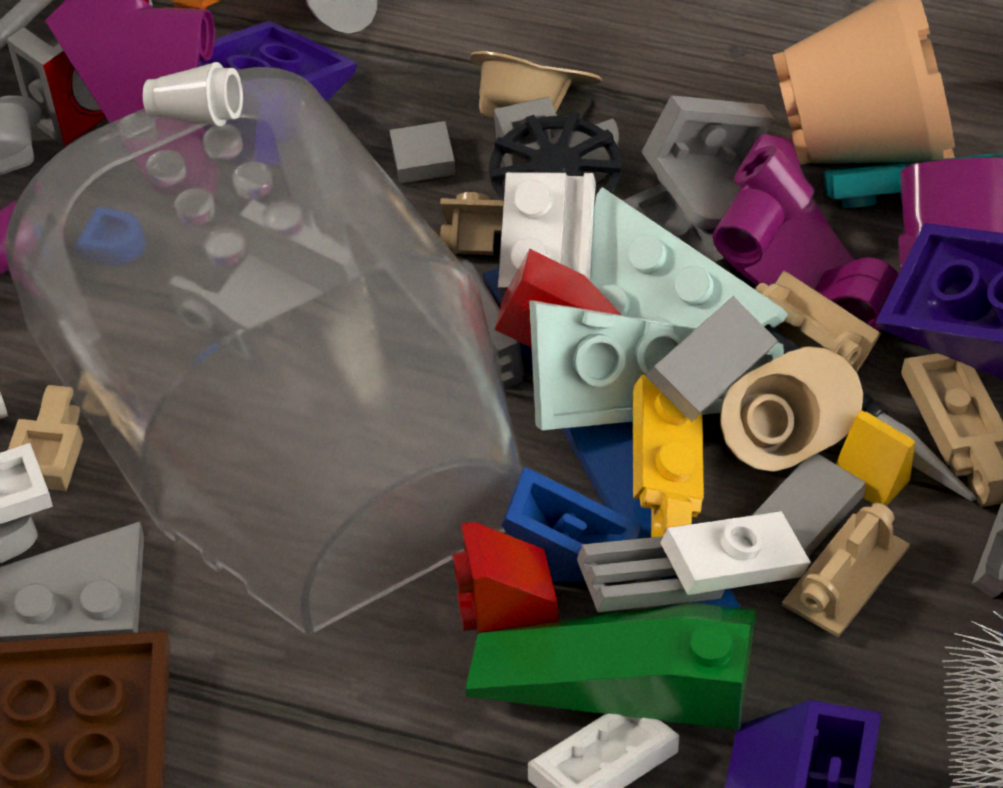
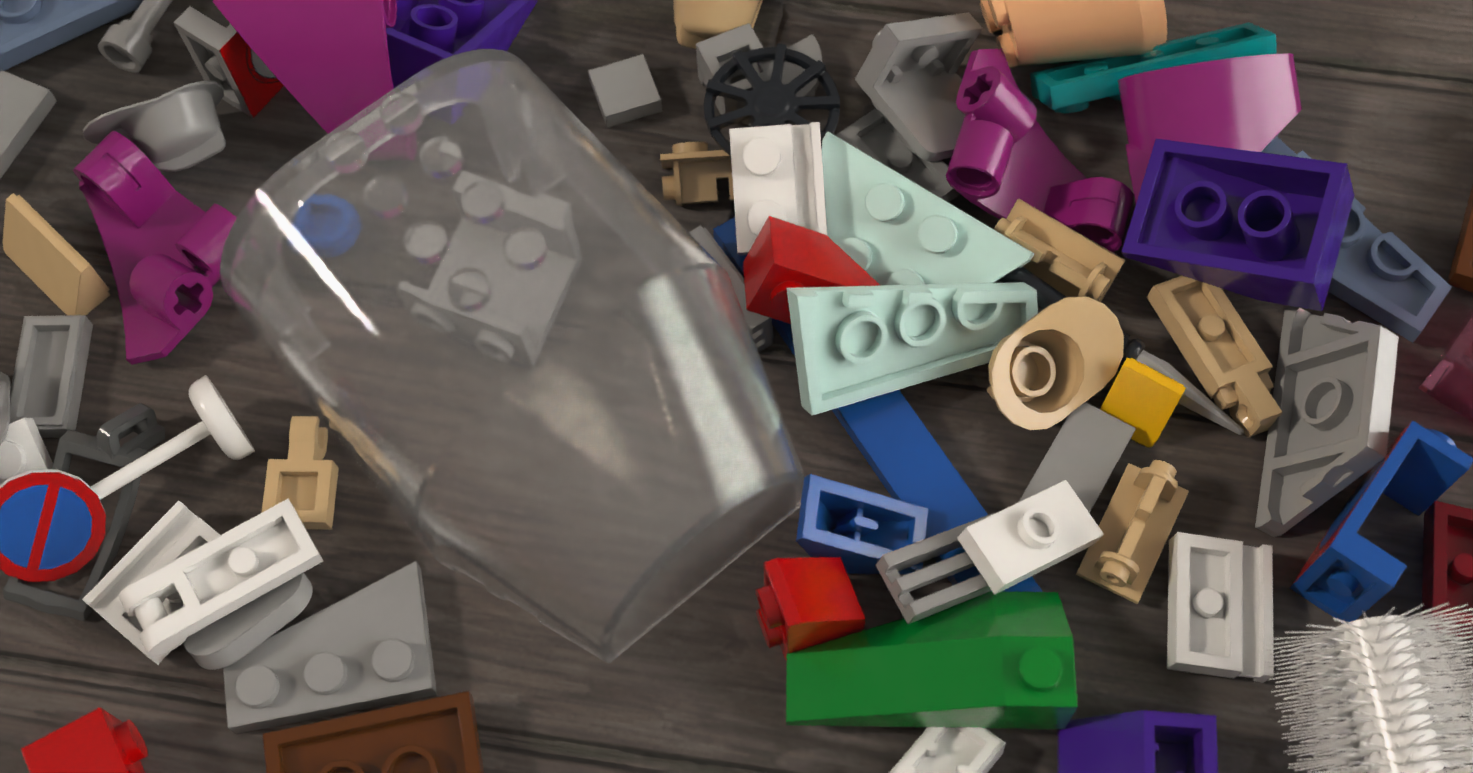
camera: 10 degrees left, 15 degrees up
(195, 95) = (407, 111): white cone -> none
(666, 459) = (944, 432): yellow hinge -> none
(711, 358) = (976, 325): light grey tile -> none
(909, 640) = (1220, 607): none -> white plate

